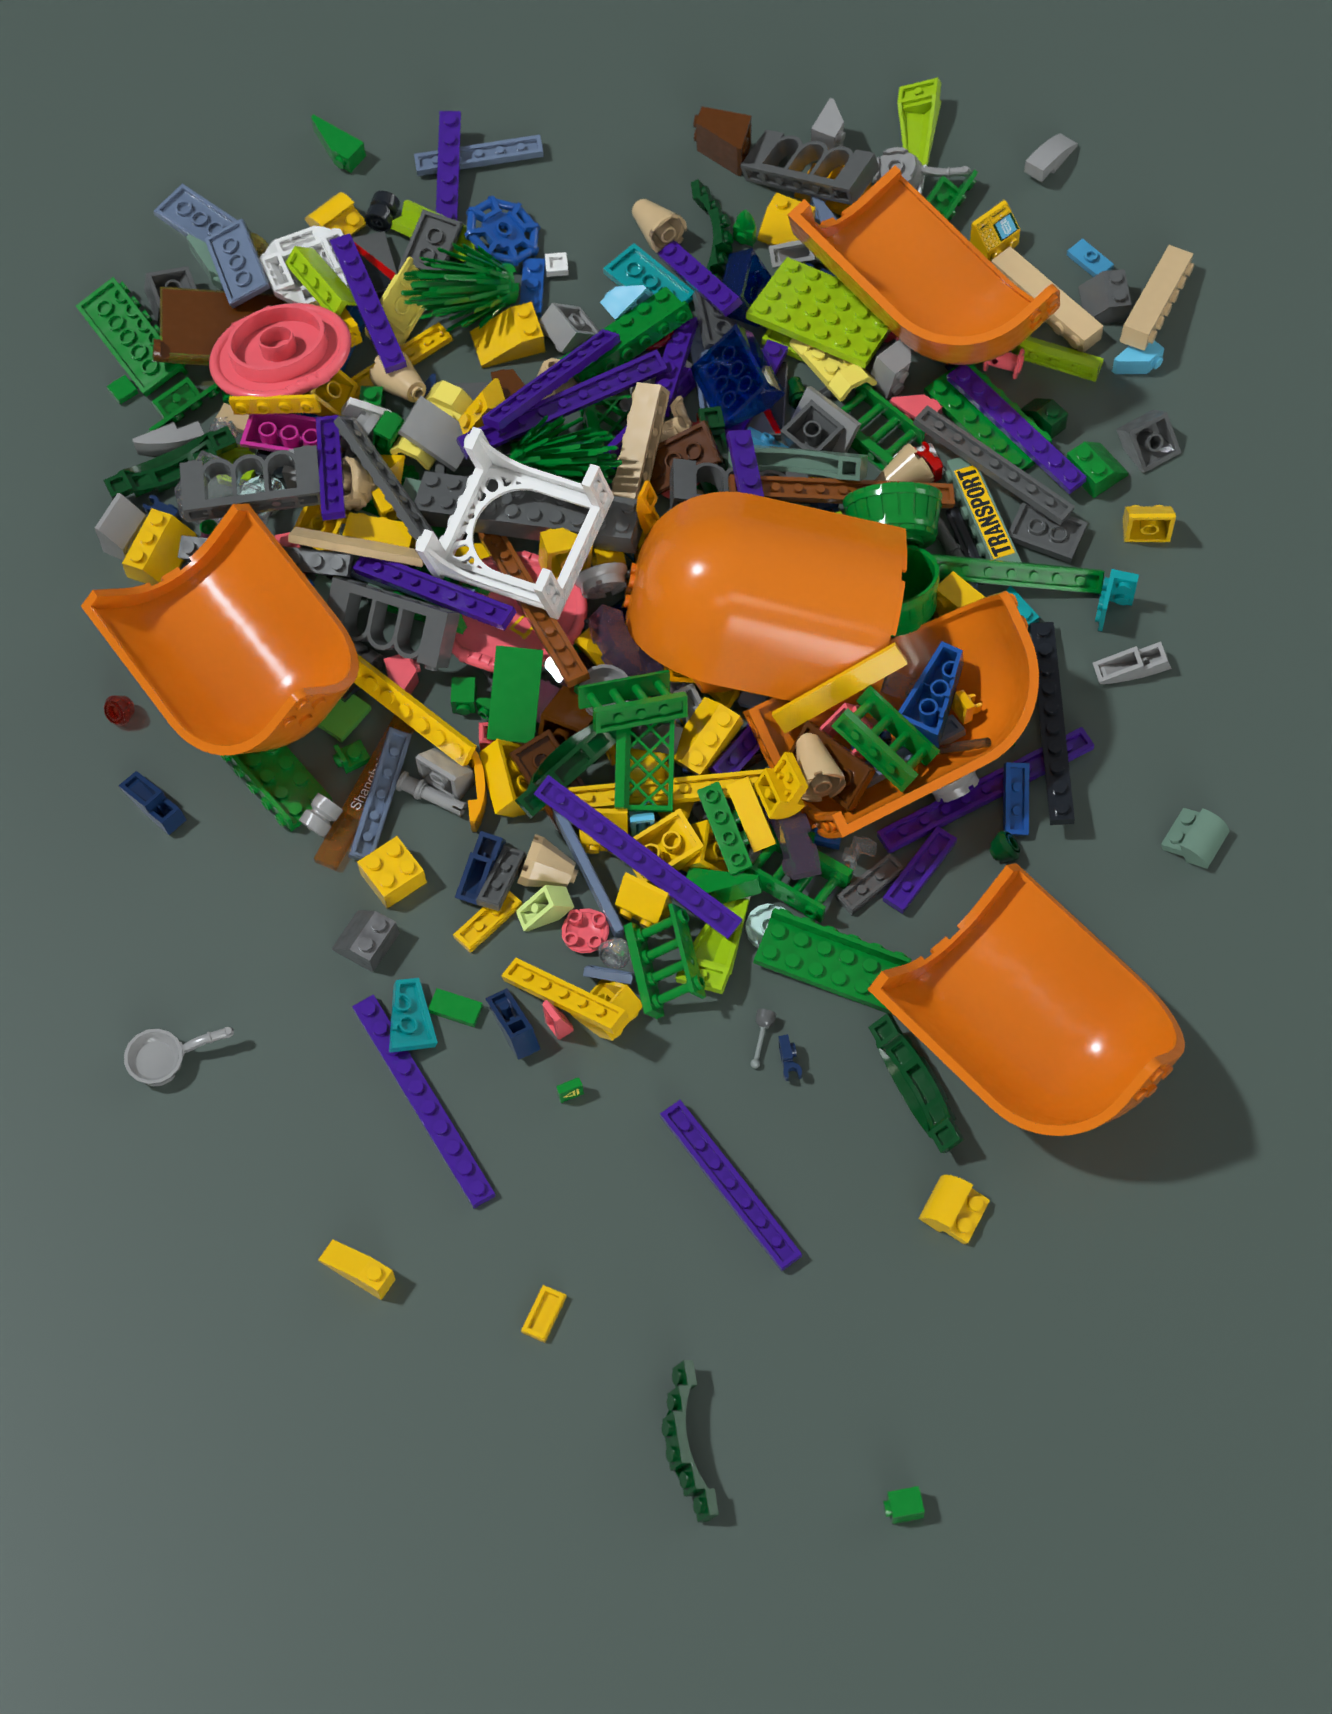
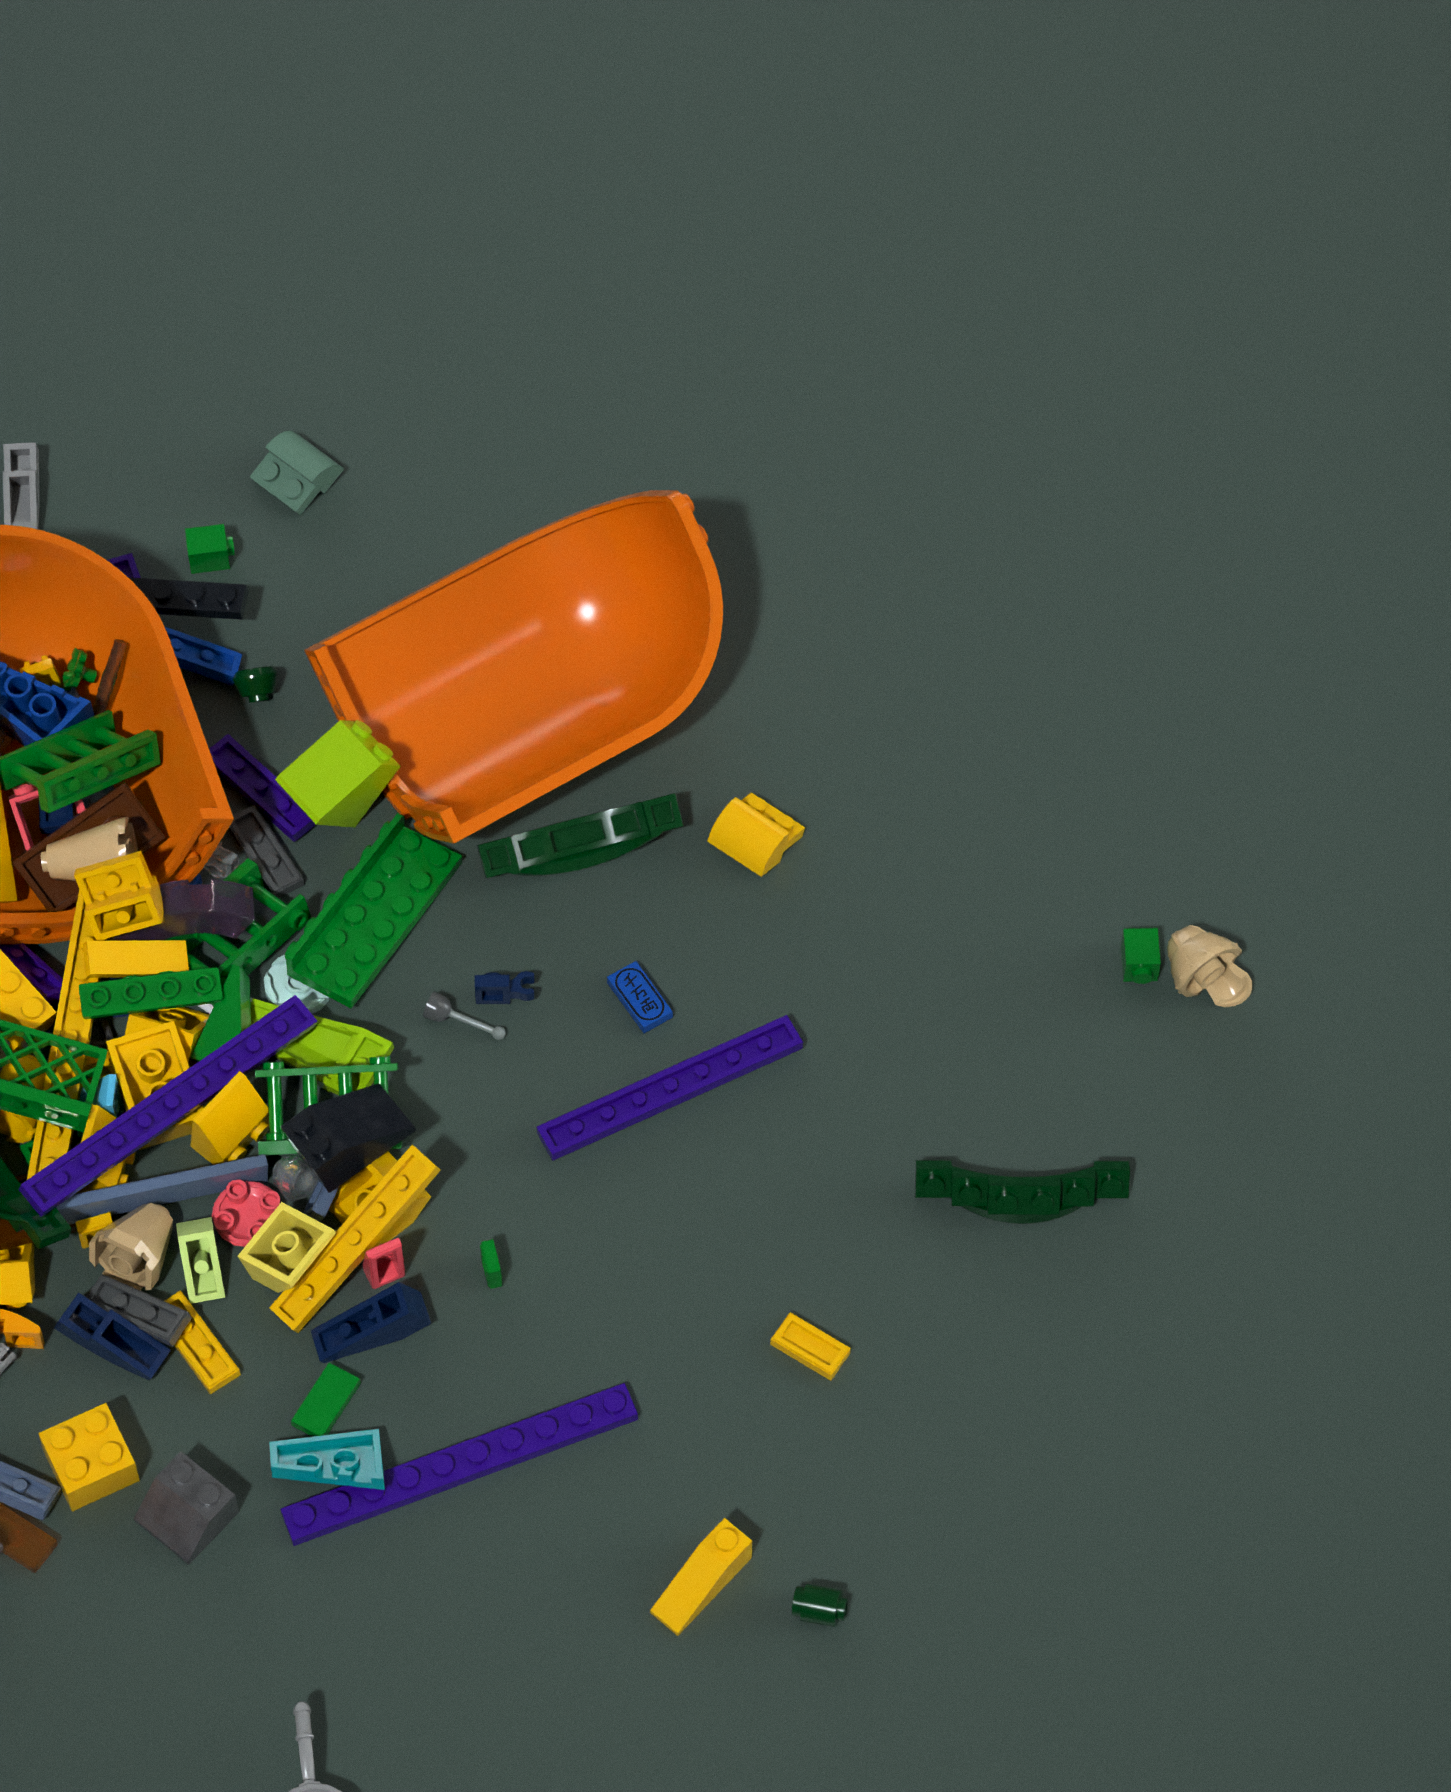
camera: 85 degrees left, 5 degrees down
(346, 1347) = (819, 1605): none -> dark green brick
(554, 837) = (90, 1226): none -> yellow tile
(554, 954) = (284, 1248): none -> light yellow slope
(635, 970) = (347, 1133): none -> black slope
(802, 1152) = (639, 997): none -> blue tile
(903, 1549) = (1207, 962): none -> tan head
(927, 911) = (340, 775): none -> lime slope
(973, 728) = (77, 671): none -> green plant
(1111, 793) = (209, 548): none -> green brick

